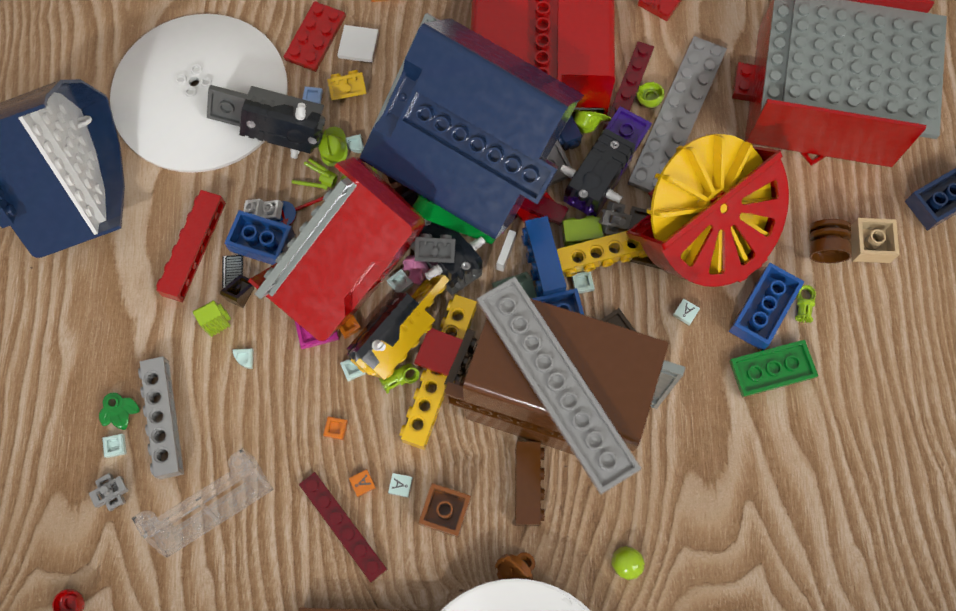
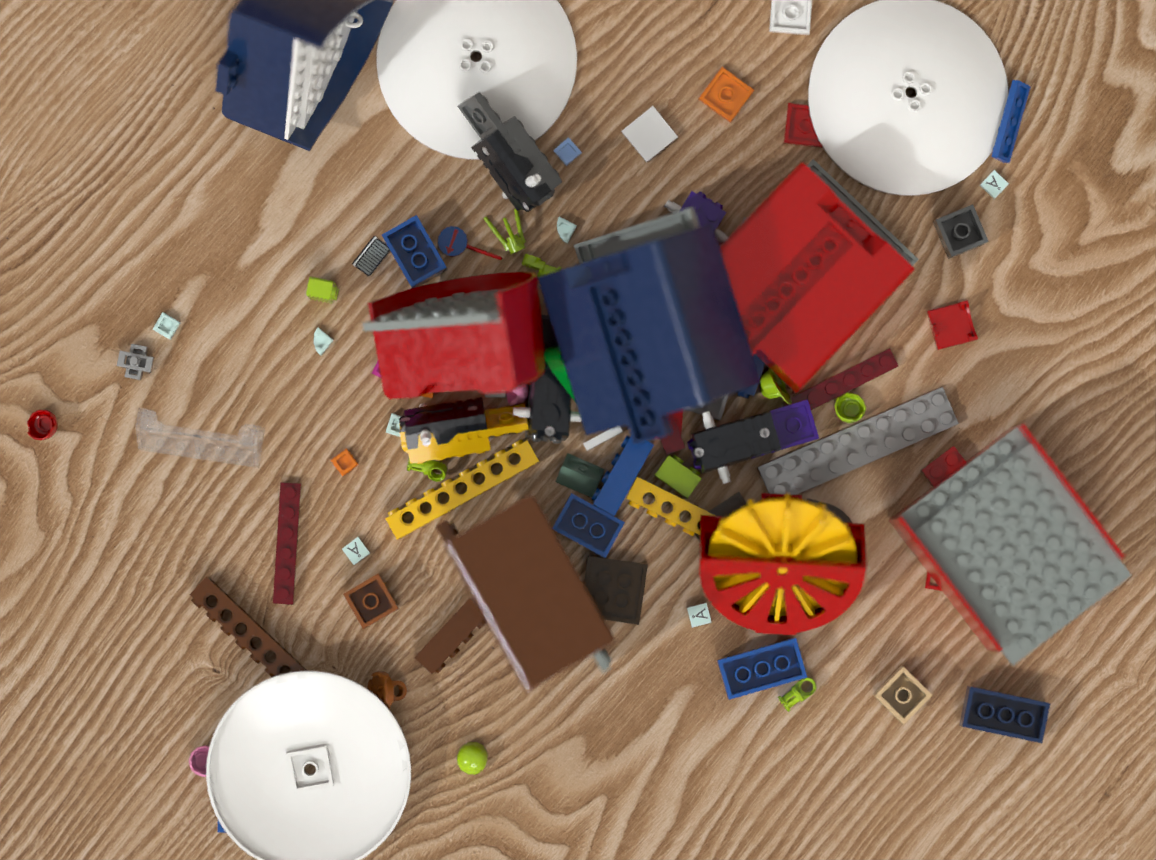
camera: 40 degrees right, 15 degrees up
(119, 413) = (190, 302): green plate -> none
(173, 464) = (199, 383): light grey brick -> none
(191, 246) = (356, 206): red brick -> none
(238, 291) = (362, 281): dark brown slope -> none
(268, 209) = (438, 224): white slope -> none
(314, 36) = (619, 92): red plate -> none
(333, 146) = (544, 218): lime piece -> none
(346, 86) = (604, 168): yellow bracket -> none
(362, 483) = (329, 523): orange tile -> none
(435, 249) = (537, 399): dark grey bracket -> none
(438, 351) = (472, 478): red tile -> none
(462, 360) = (479, 504): dark brown plate -> none
(558, 385) = (507, 600): light grey plate -> none
(583, 282) = (640, 518): light aqua tile -> none
(617, 220) = (714, 491): light grey piece -> none
(773, 368) = (721, 719): green plate -> none
(830, 241) = (865, 664): reddish brown wheel -> none

